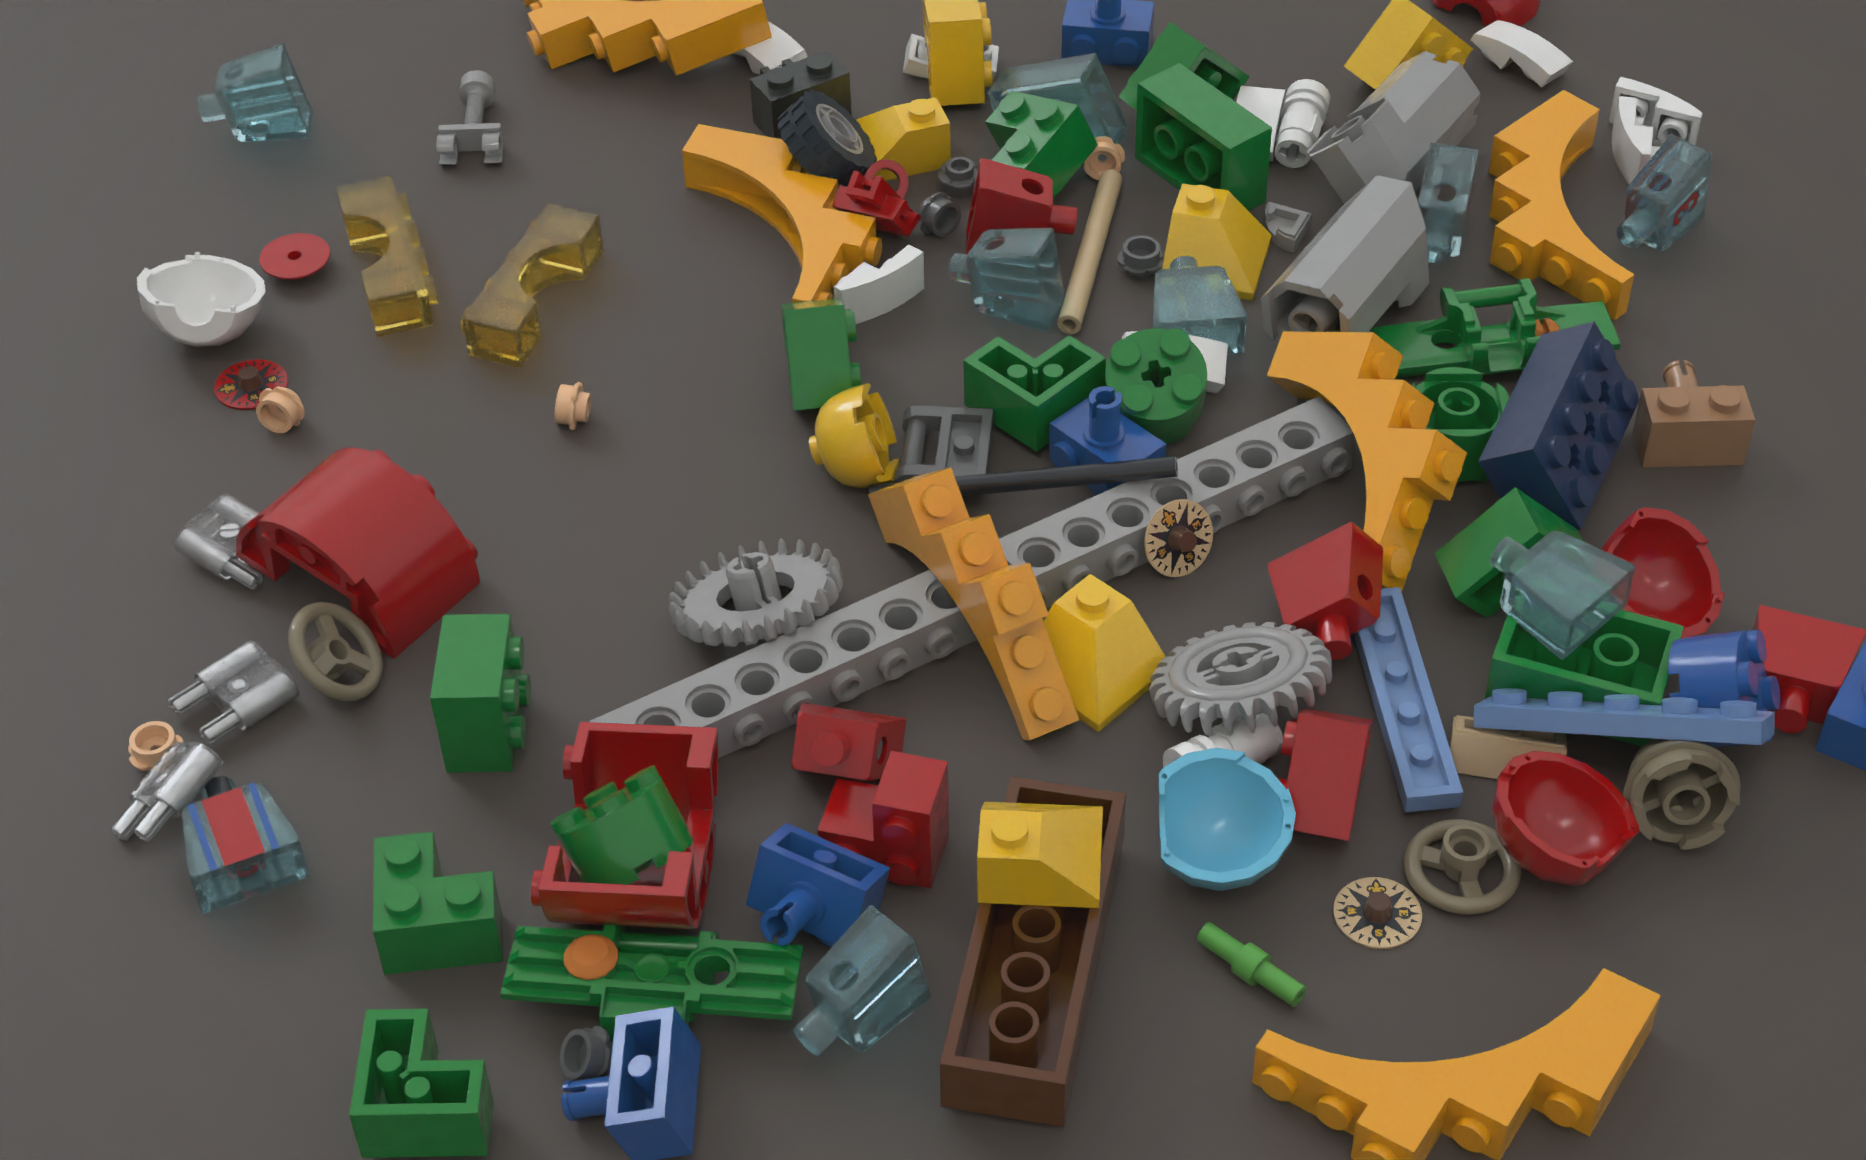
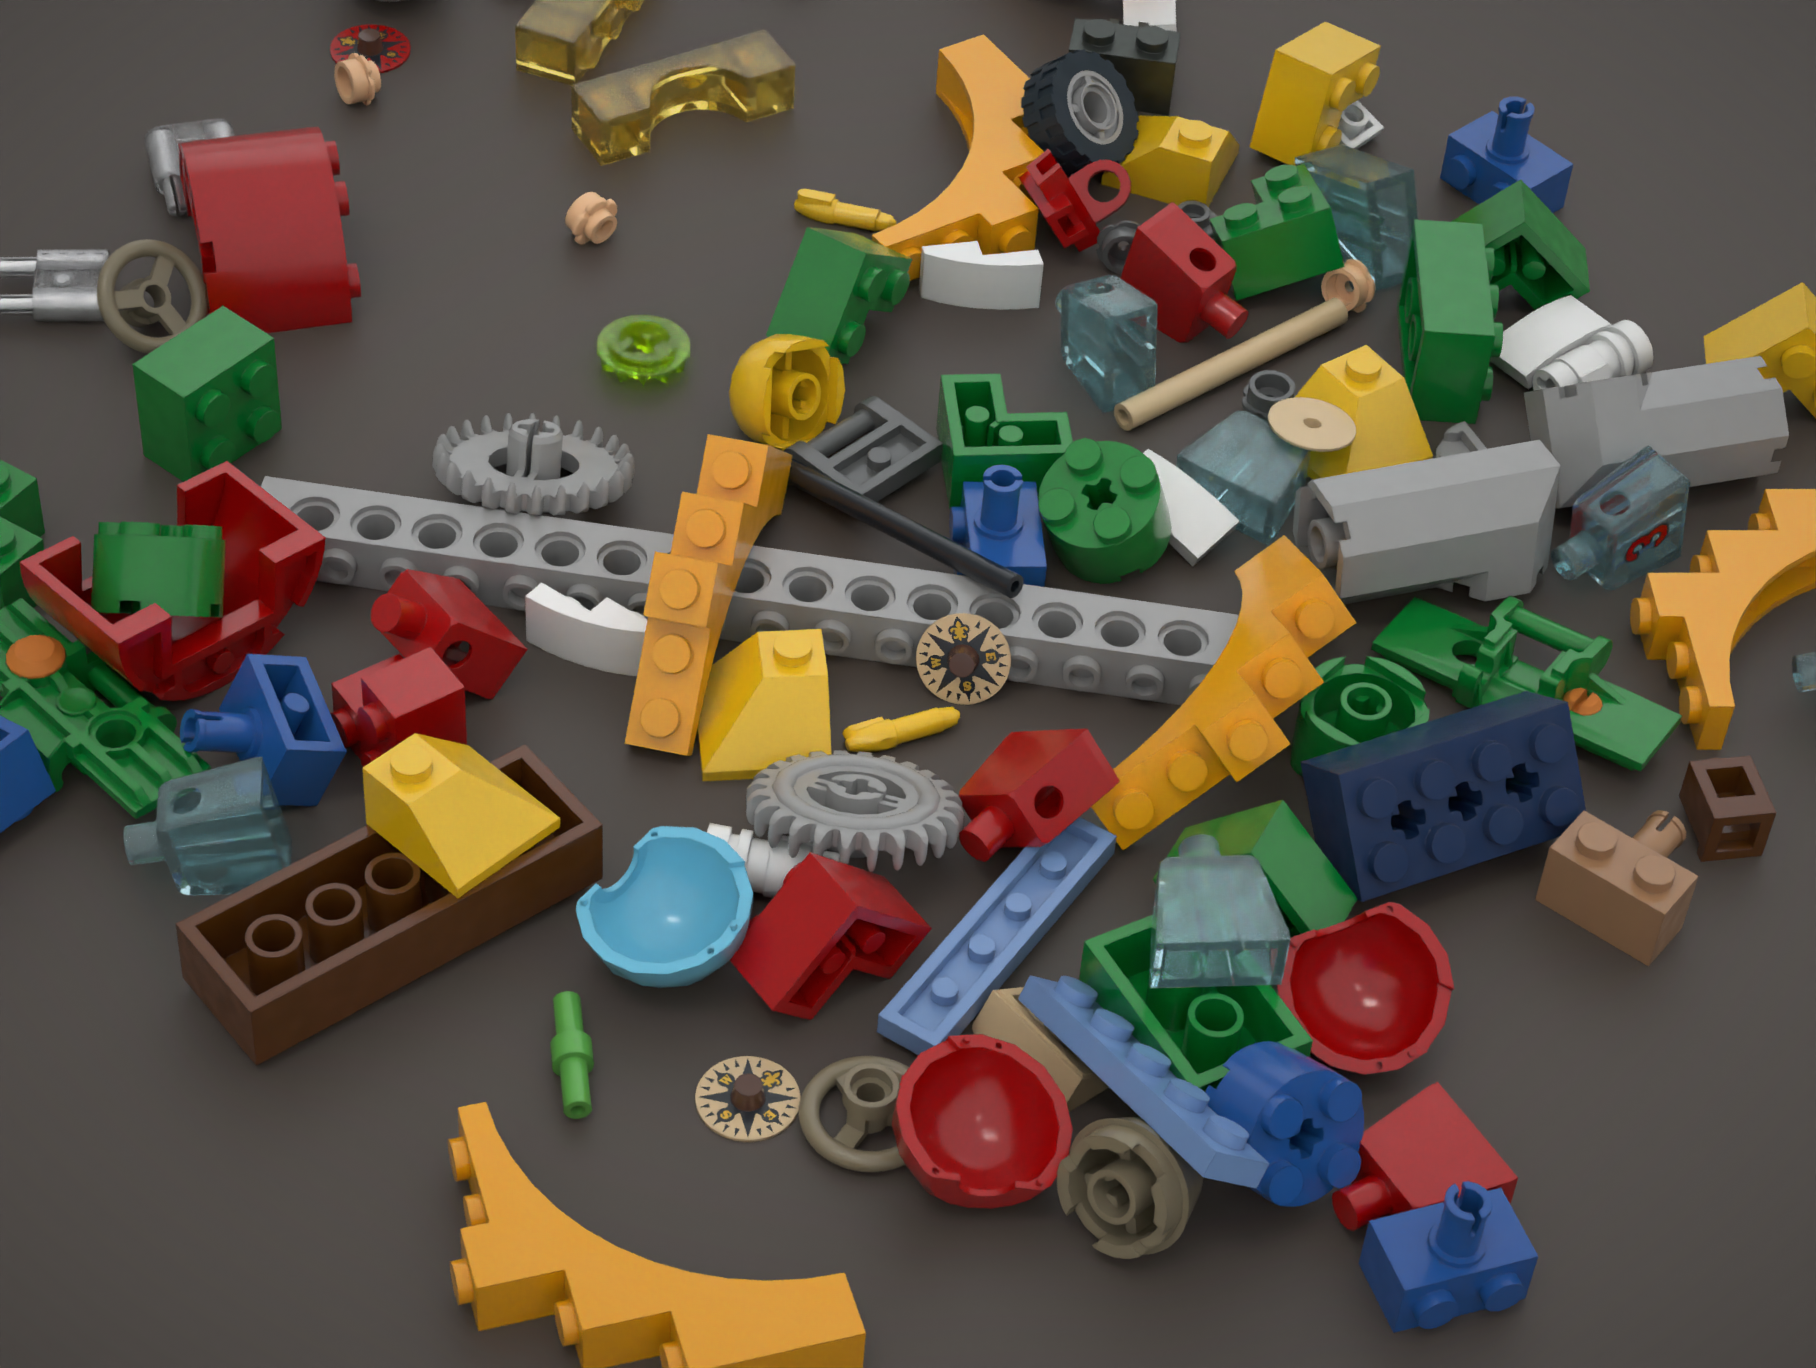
camera: 35 degrees right, 0 degrees up
(707, 458) = (651, 335): none -> clear neon green gear
(717, 304) = (827, 209): none -> yellow piece
(943, 678) = (600, 639): none -> white slope
(1175, 622) = (882, 734): none -> yellow piece
(1208, 253) = (1311, 424): none -> tan piece
(1688, 335) = (1727, 807): none -> reddish brown brick

